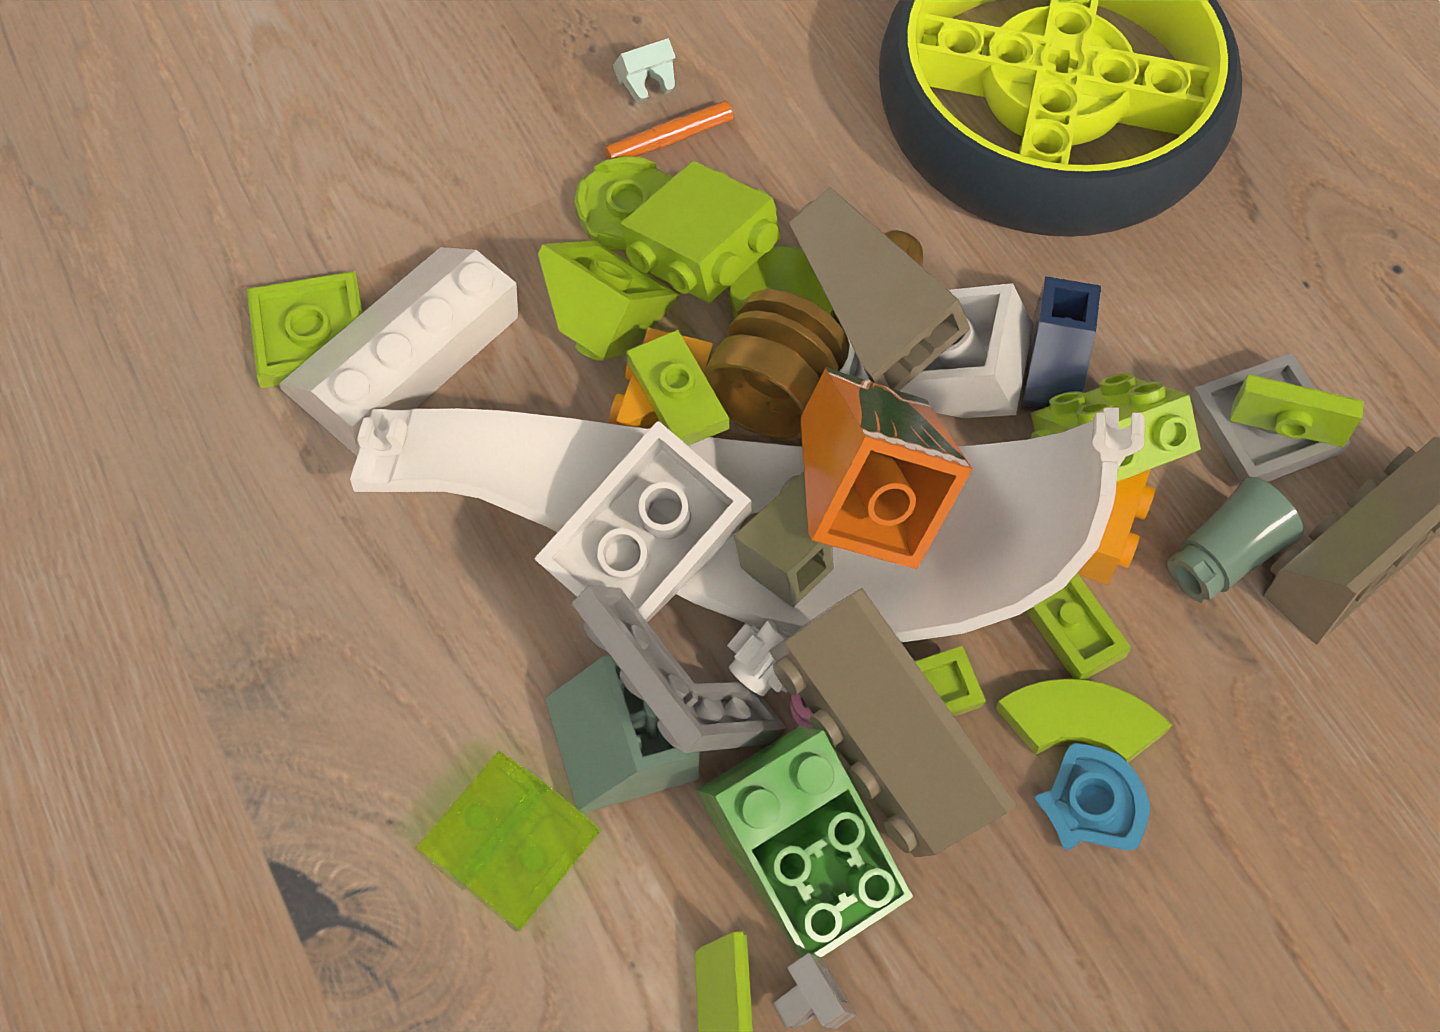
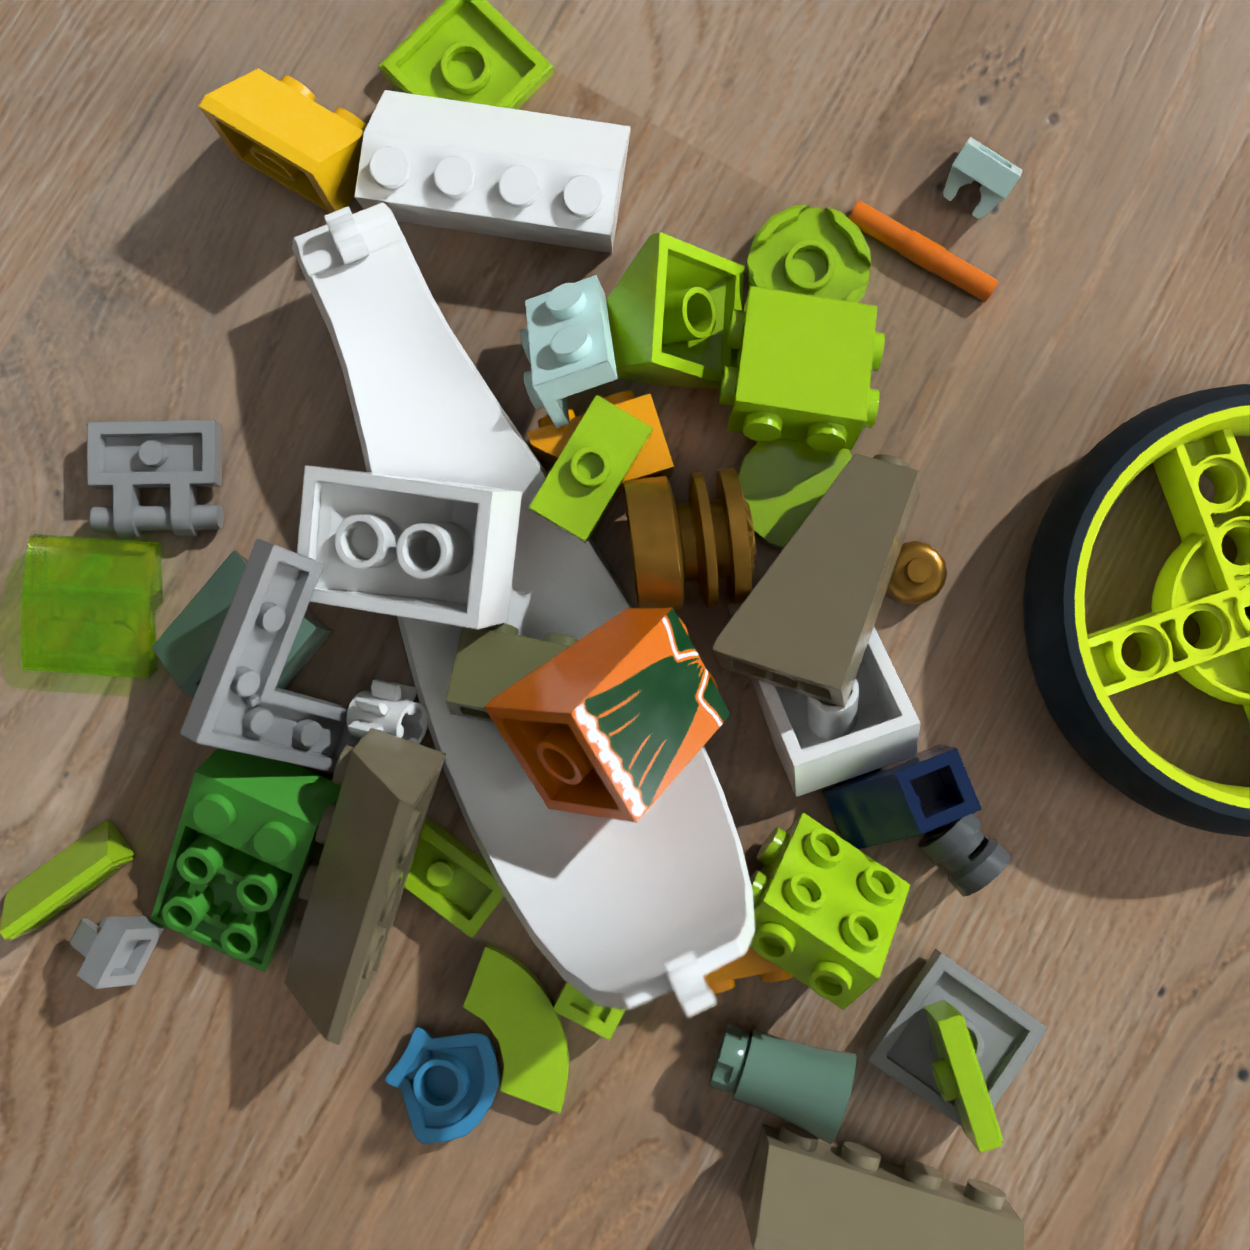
camera: 55 degrees right, 25 degrees up
(271, 459) = (289, 136): none -> yellow slope
(423, 713) = (155, 456): none -> light grey plate
(574, 355) = (567, 345): none -> light aqua bracket
(1127, 334) = (966, 854): none -> dark grey wheel

